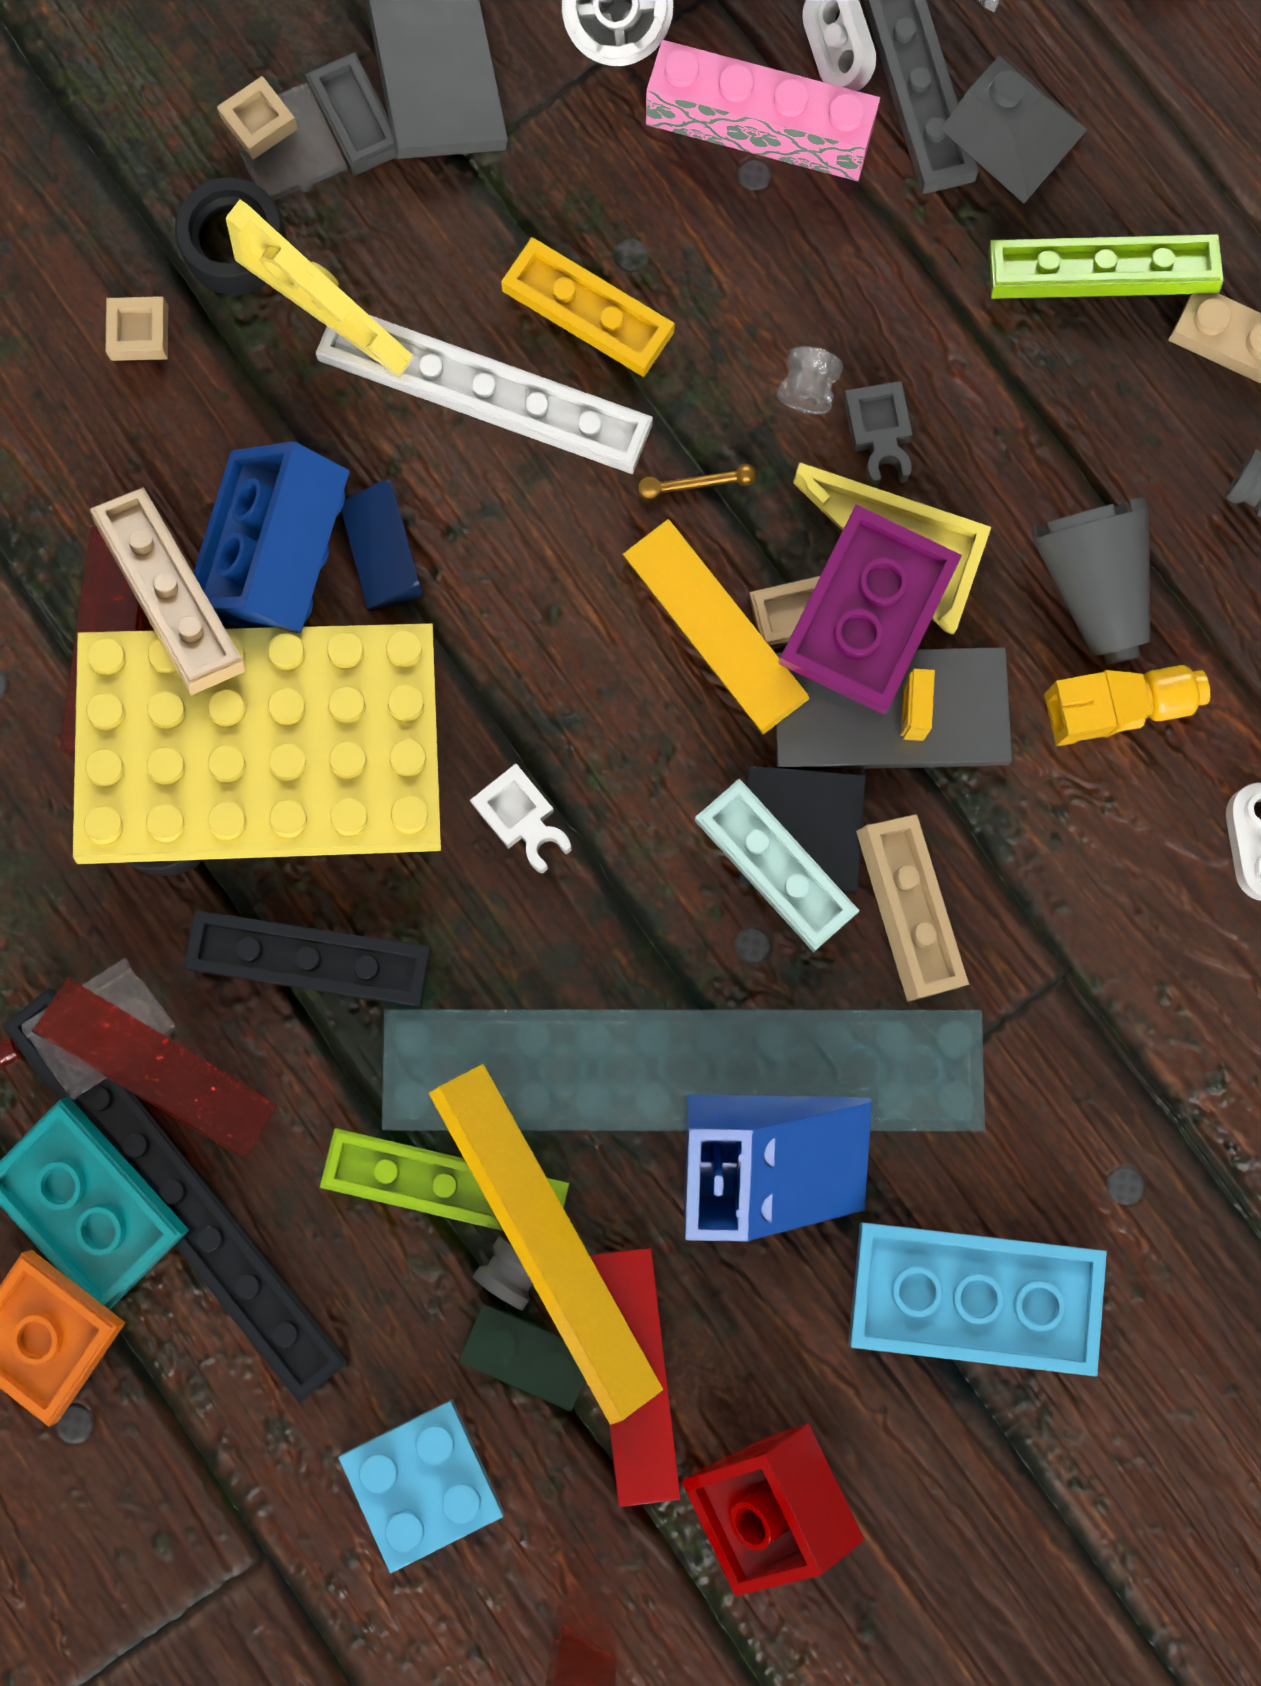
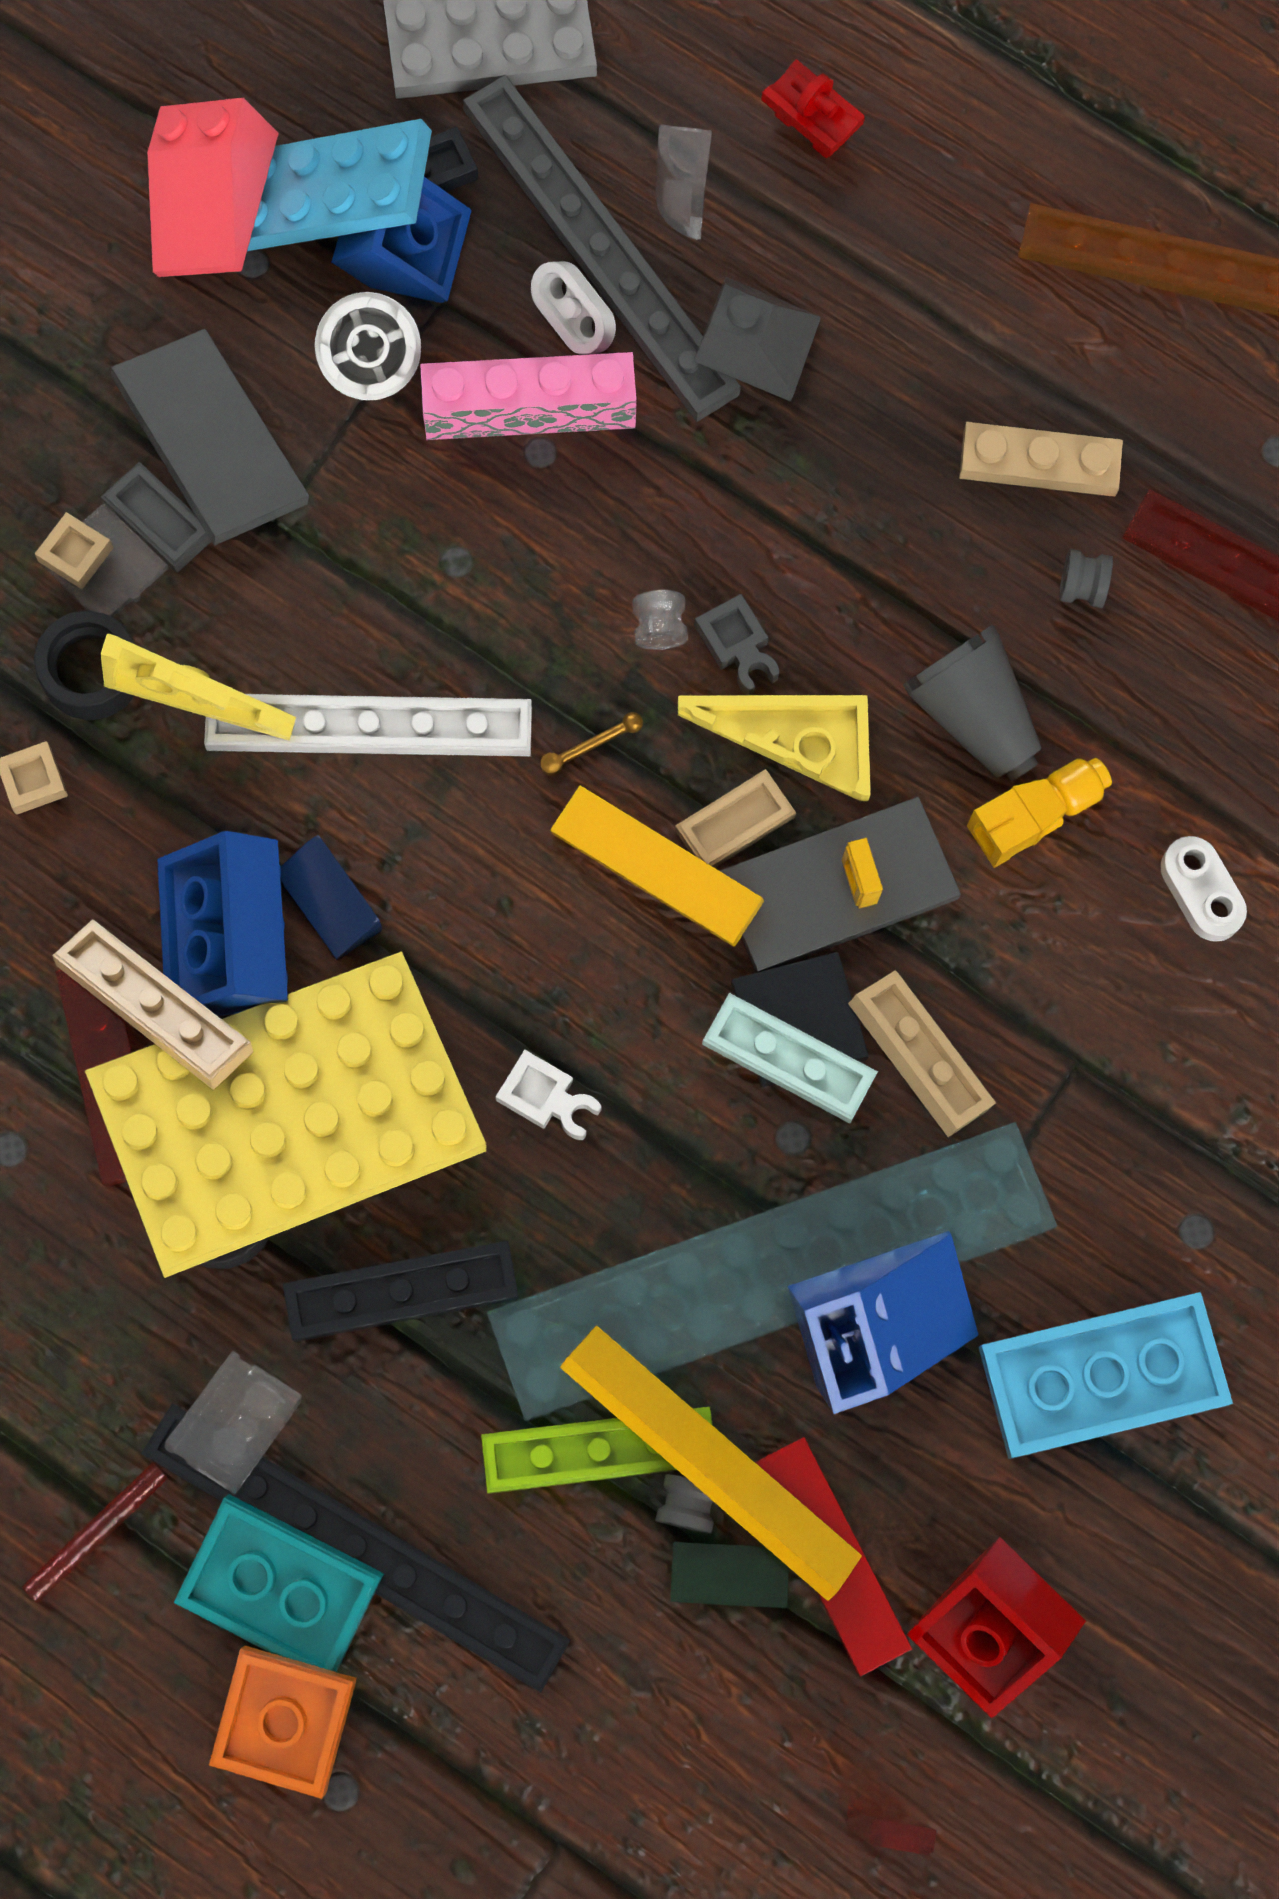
camera: 25 degrees left, 5 degrees down
(154, 1067) = (301, 1436): clear red tile -> none
(421, 1486) = (677, 1725): medium azure plate -> none
(587, 307) = (436, 620): yellow plate -> none
(870, 609) = (789, 804): magenta plate -> none
(1105, 266) = (881, 433): lime tile -> none

